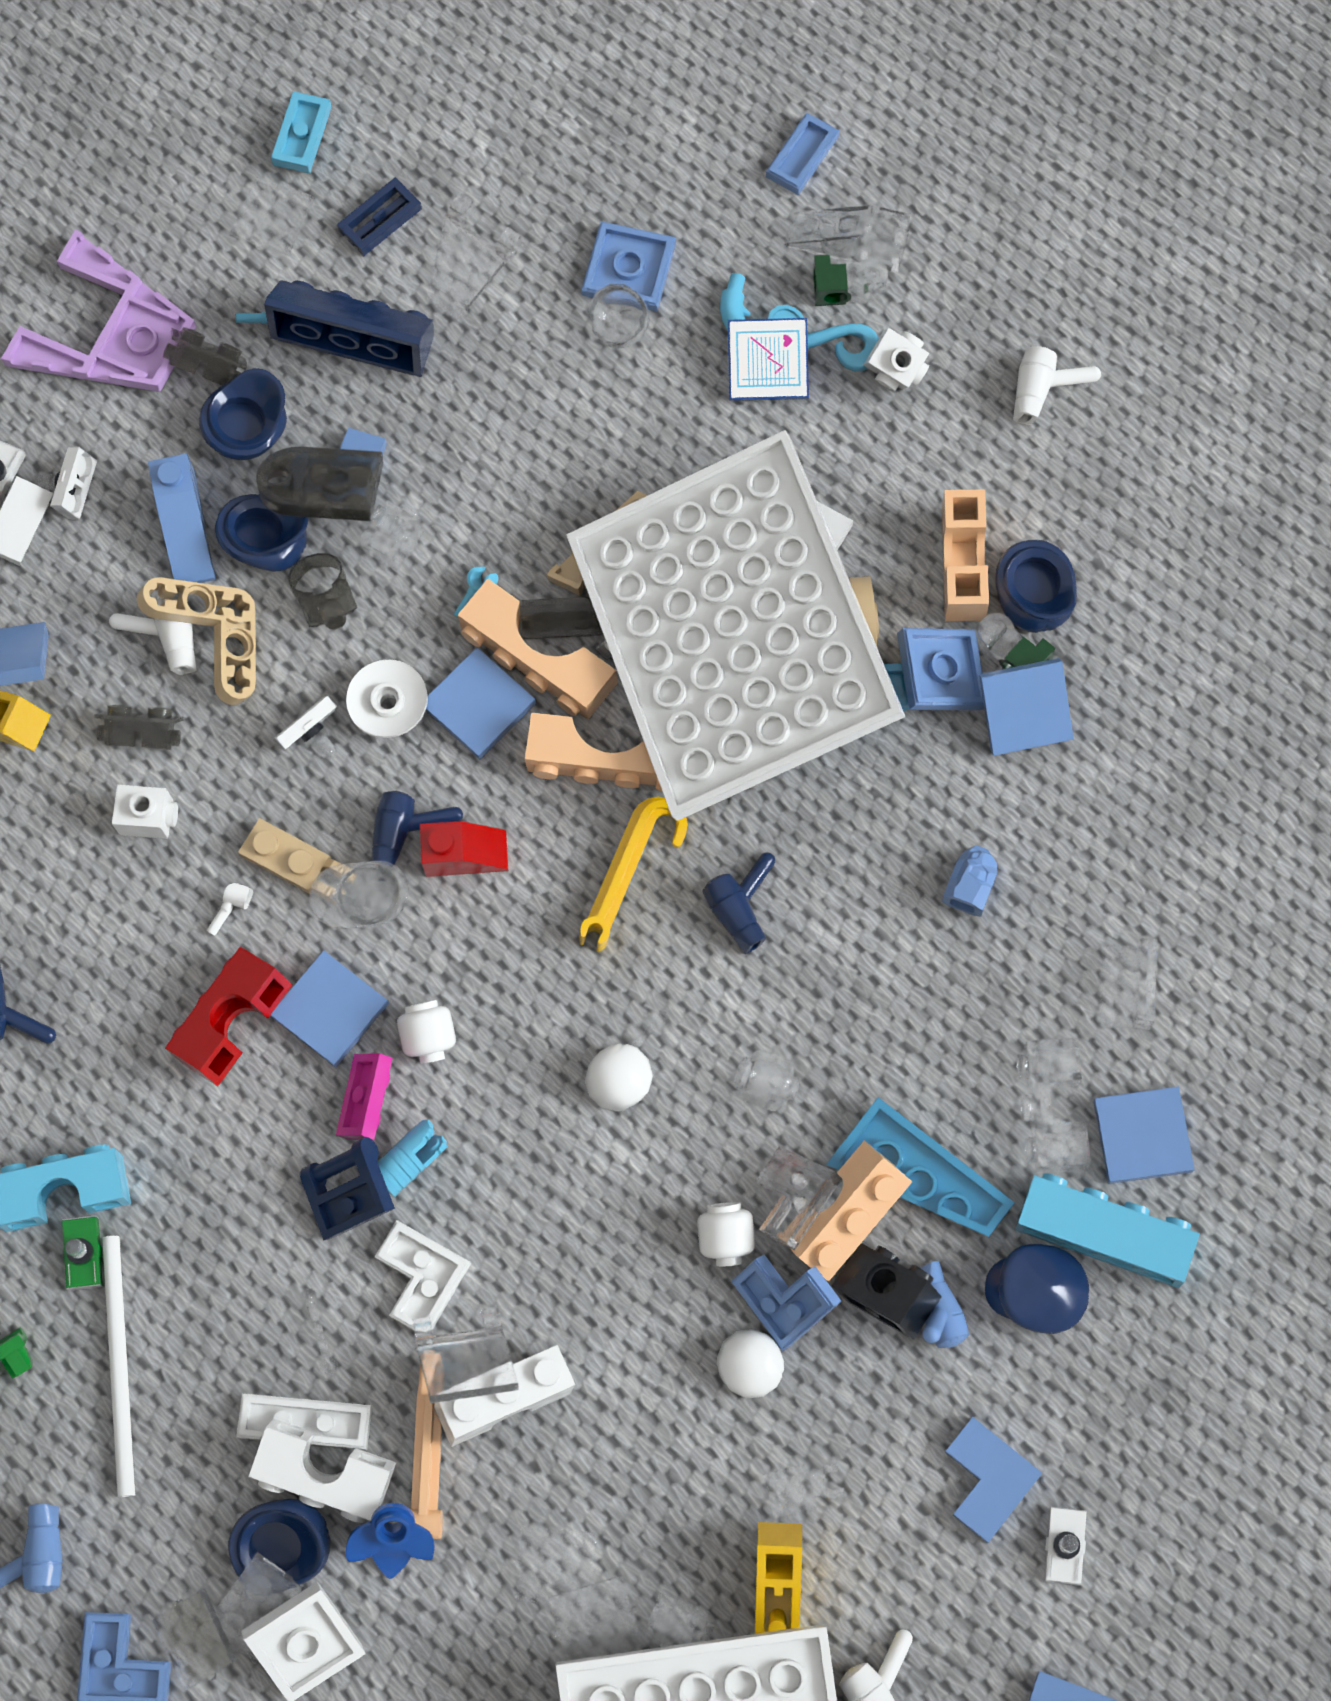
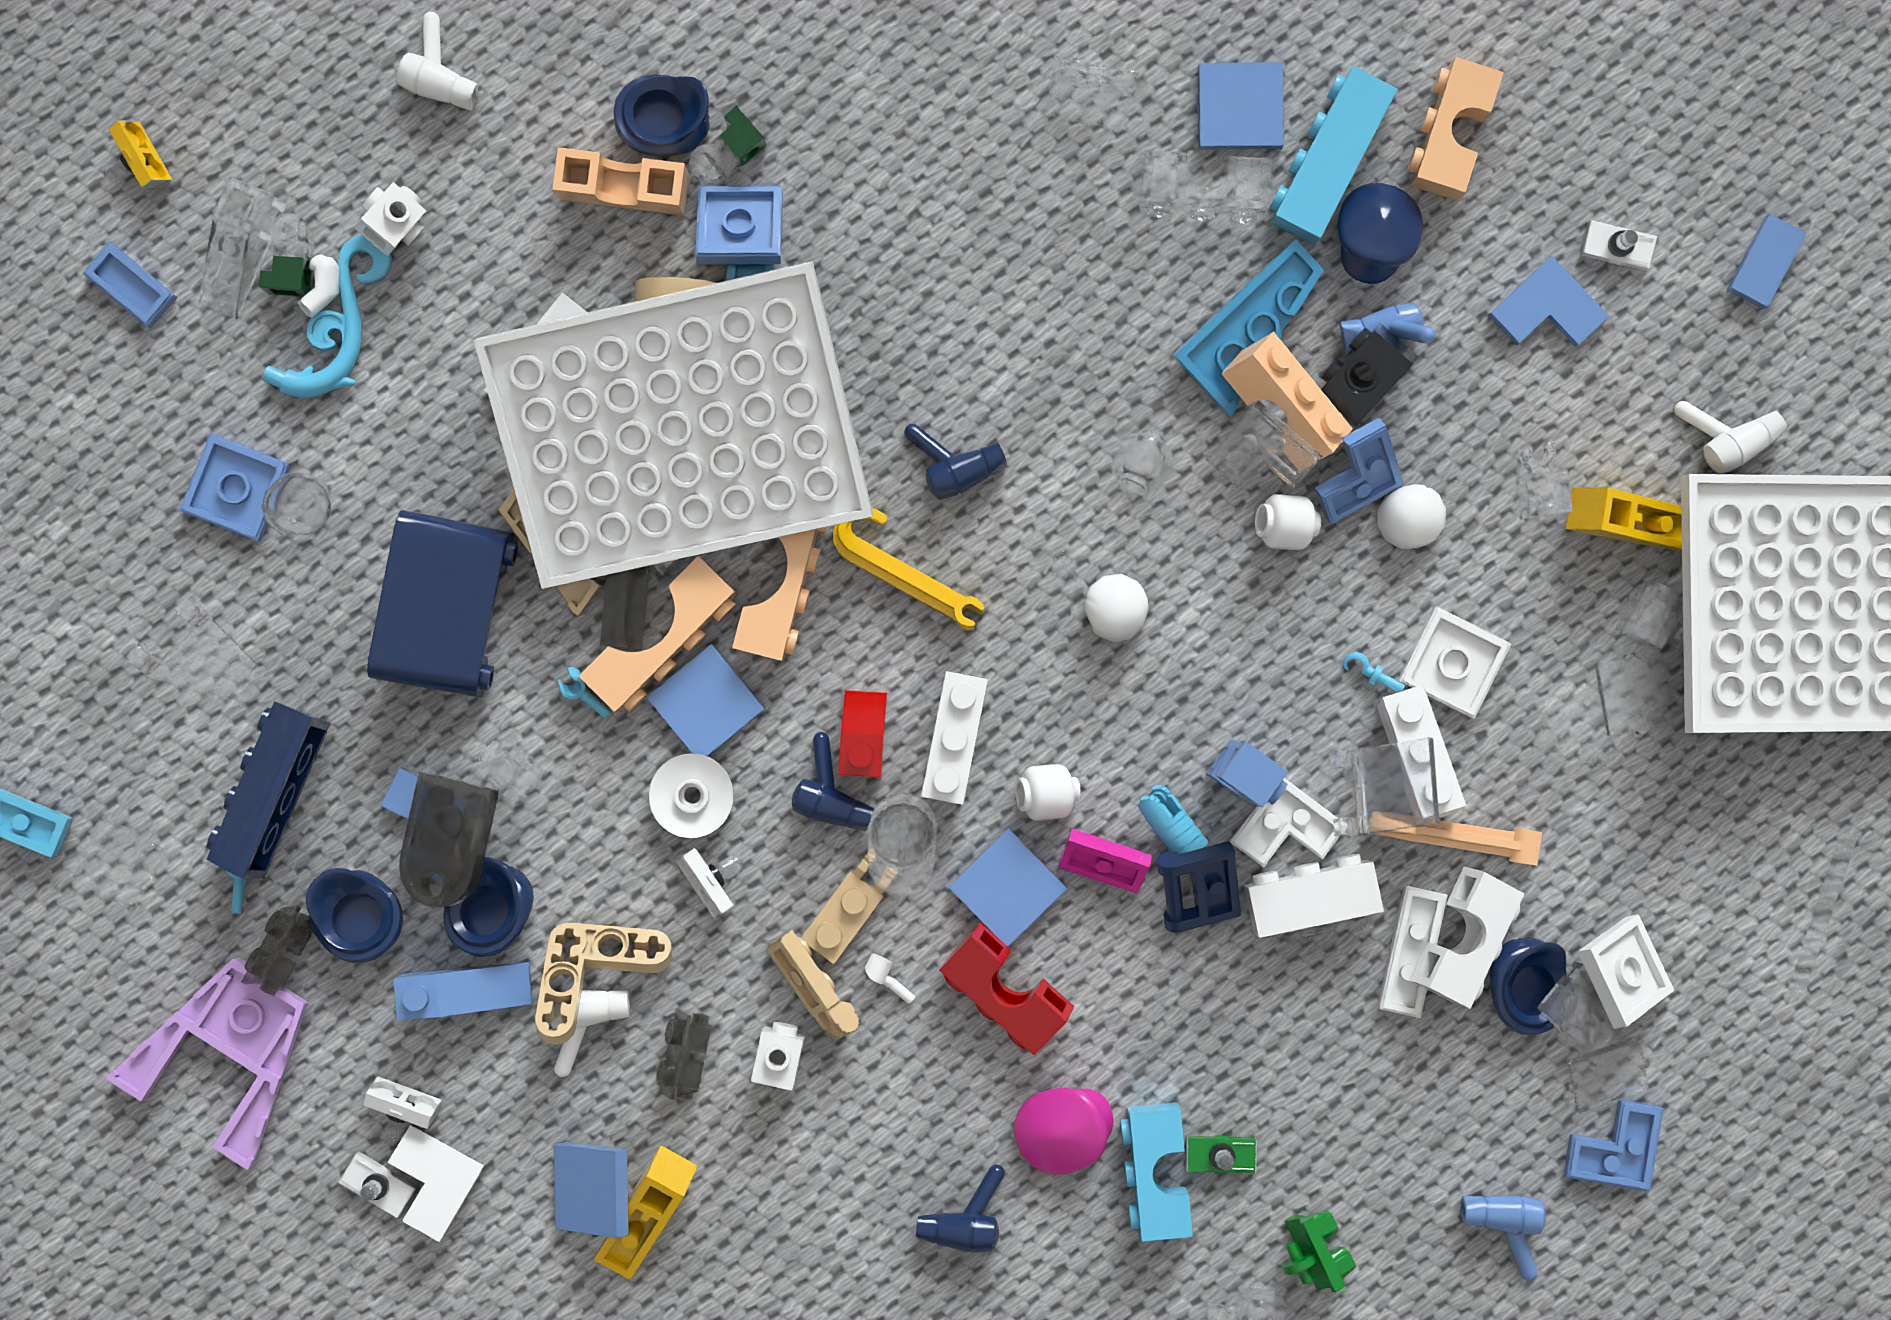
camera: 90 degrees left, 15 degrees up
(96, 1093) = (1063, 1129): none -> dark pink piece
(118, 1367) = (1335, 1127): white piece -> none
(213, 836) = (813, 986): none -> tan hinge
(327, 607) = (582, 847): clear smoke piece -> none
(349, 1308) = (1313, 896): none -> white brick
(387, 228) = (157, 776): dark blue tile -> none
(390, 1543) = (1540, 878): blue plate -> none
(462, 1213) = (1249, 774): none -> medium blue arch
(469, 934) = (954, 737): none -> white brick
(541, 446) = (439, 604): none -> dark blue windscreen
(583, 1345) = (1374, 674): none -> medium azure hand
(605, 1427) = (1454, 662): none -> white tile
(768, 359) = (368, 353): white tile -> none
(827, 315) = (326, 285): none -> white arm
(921, 142) = (137, 157): none -> yellow piece
(971, 881) = (964, 230): medium blue rock -> none
(1026, 706) = (793, 145): medium blue tile -> none
(1195, 1354) = (1442, 163): none -> light nougat arch

